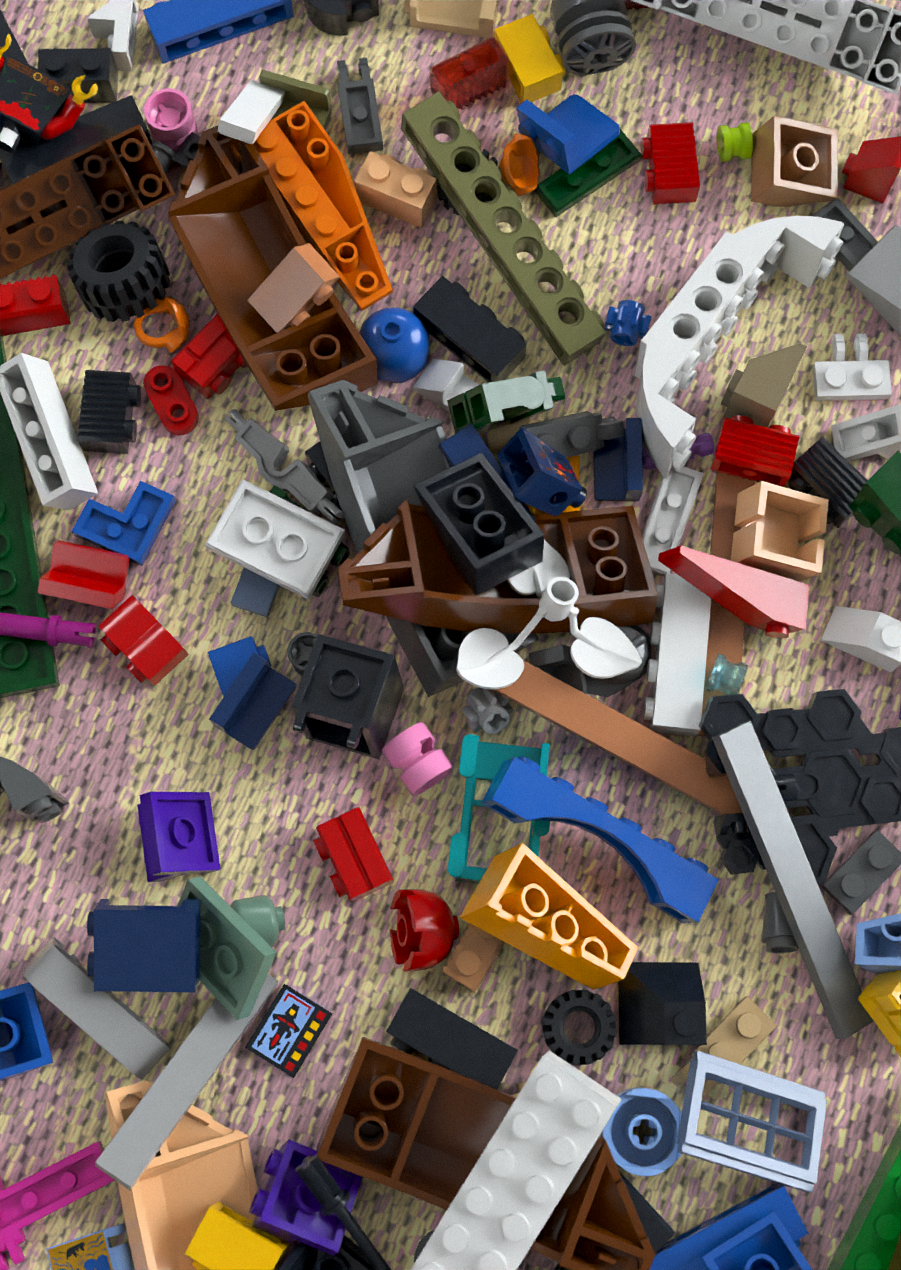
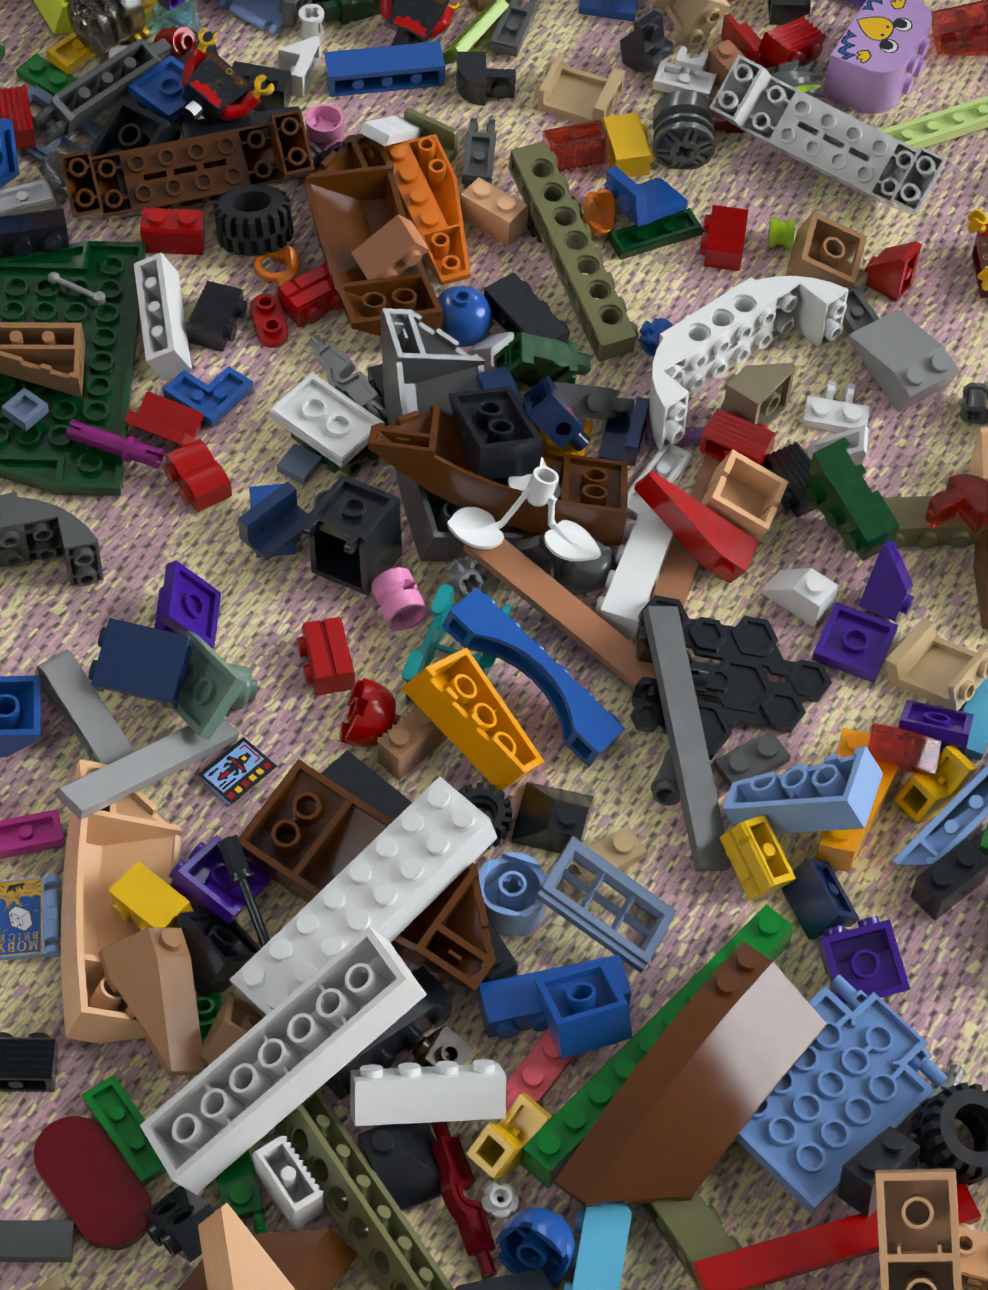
camera: 10 degrees right, 20 degrees down
(726, 676) = (671, 587): clear light blue wheel -> none

